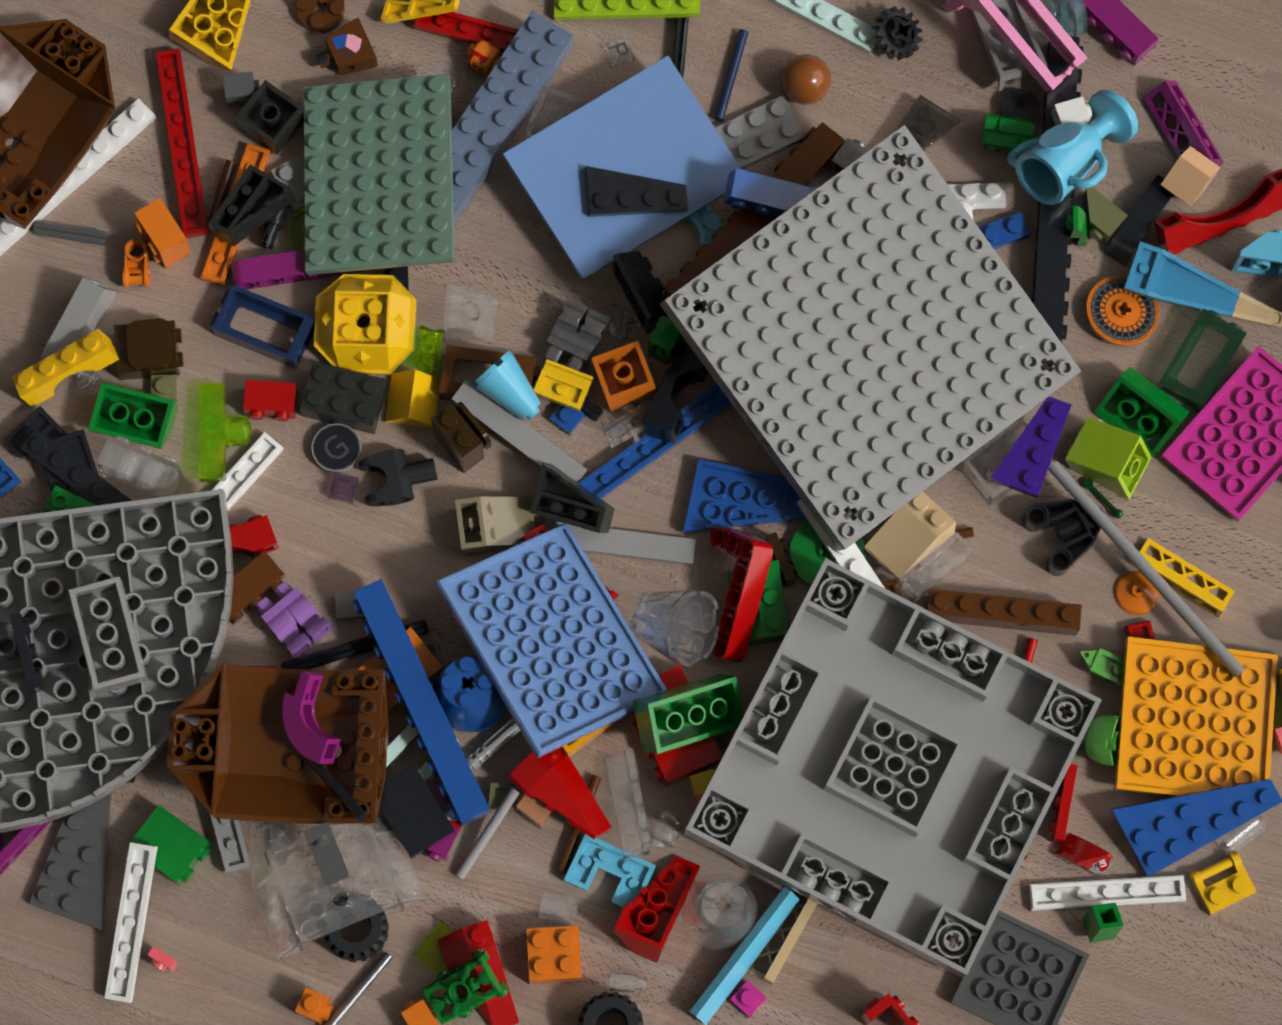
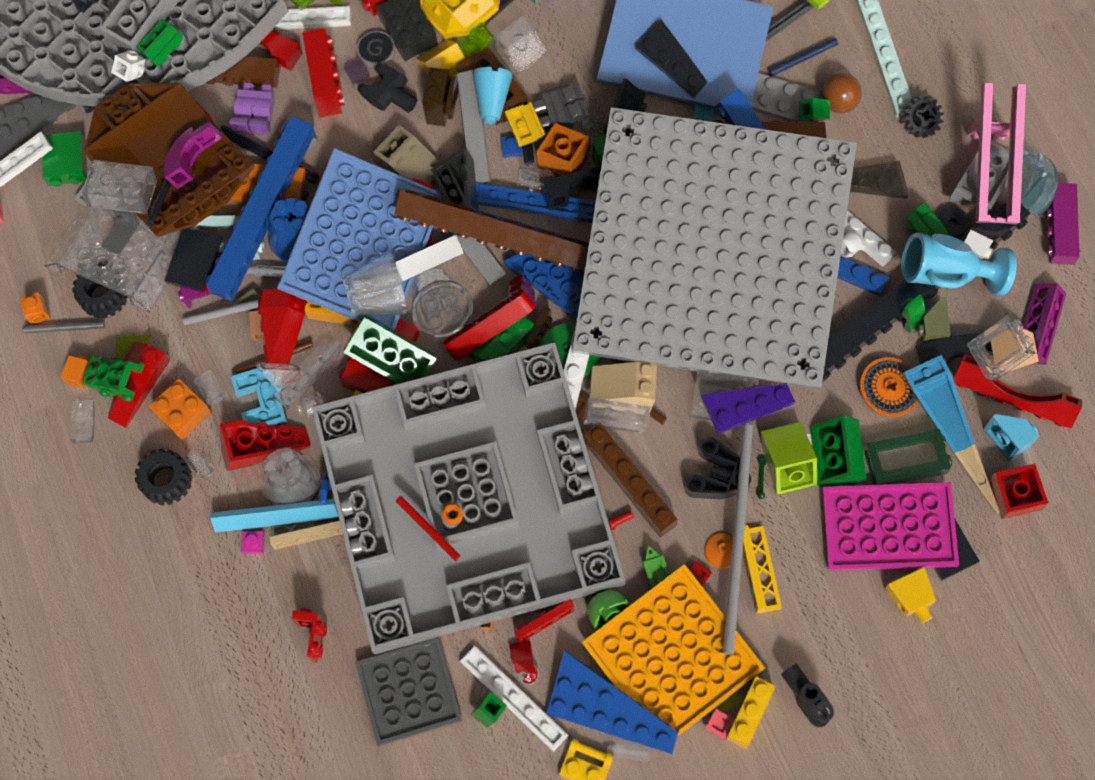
camera: 55 degrees right, 5 degrees down
(156, 696) = (128, 65): none -> white brick
(161, 645) = (160, 42): none -> green brick
(292, 813) = (119, 186): none -> clear brick
(322, 521) = (323, 72): none -> red brick
(613, 830) = (279, 374): none -> clear slope
(620, 596) = (428, 258): none -> white tile
(627, 667) = (375, 288): none -> clear cone
(655, 511) = (492, 229): none -> reddish brown brick
(762, 883) = (325, 487): none -> blue piece
(802, 119) = (814, 109): none -> green brick
(900, 826) = (427, 528): none -> red bar
(907, 785) = (452, 508): none -> orange plate
(1180, 211) = (984, 360): none -> clear window

